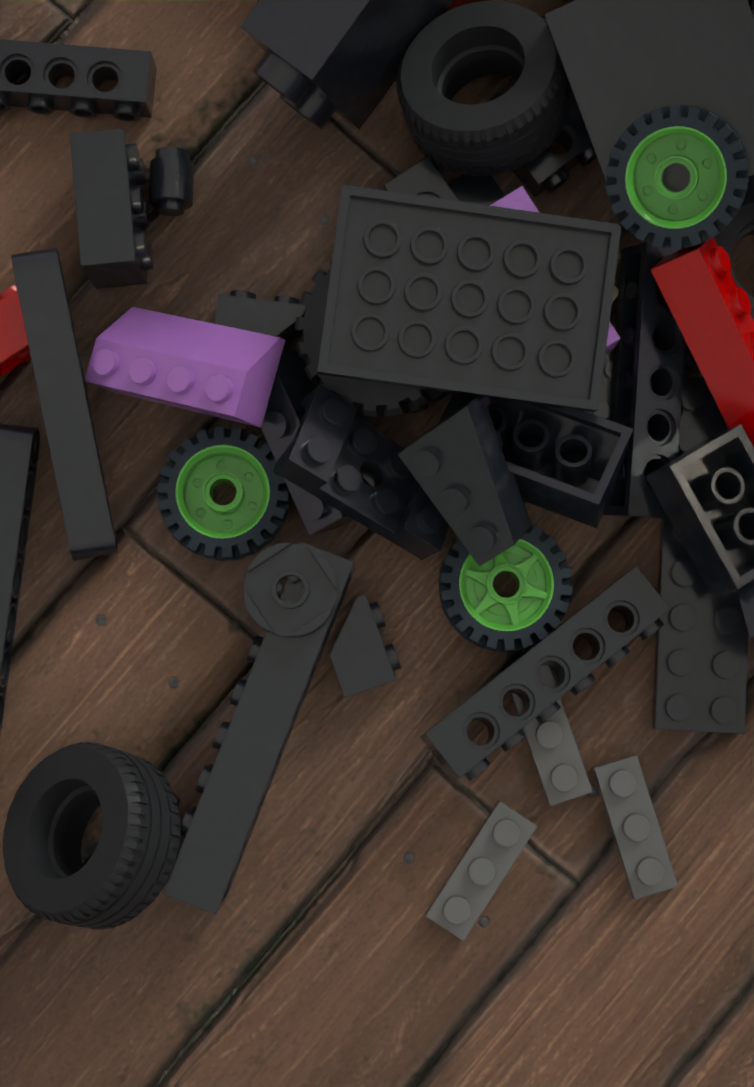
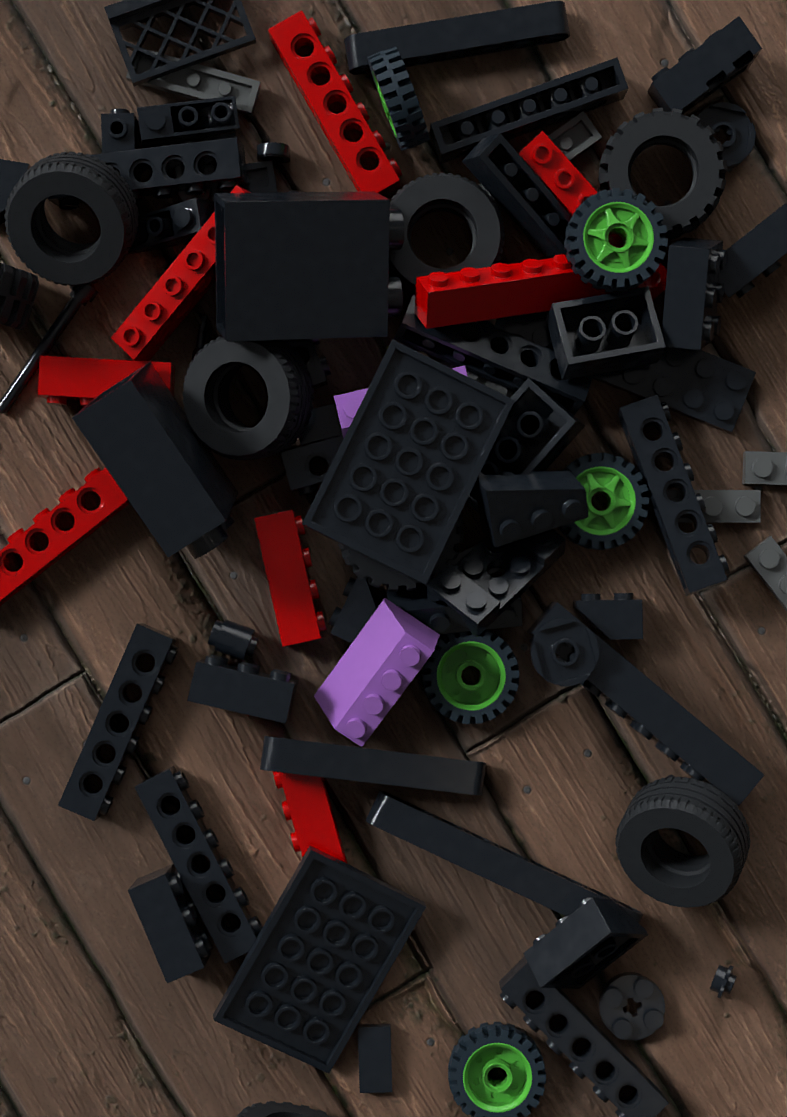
camera: 70 degrees left, 5 degrees up
(268, 226) = (288, 577): none -> red brick
(716, 176) = (355, 271): wheel -> none

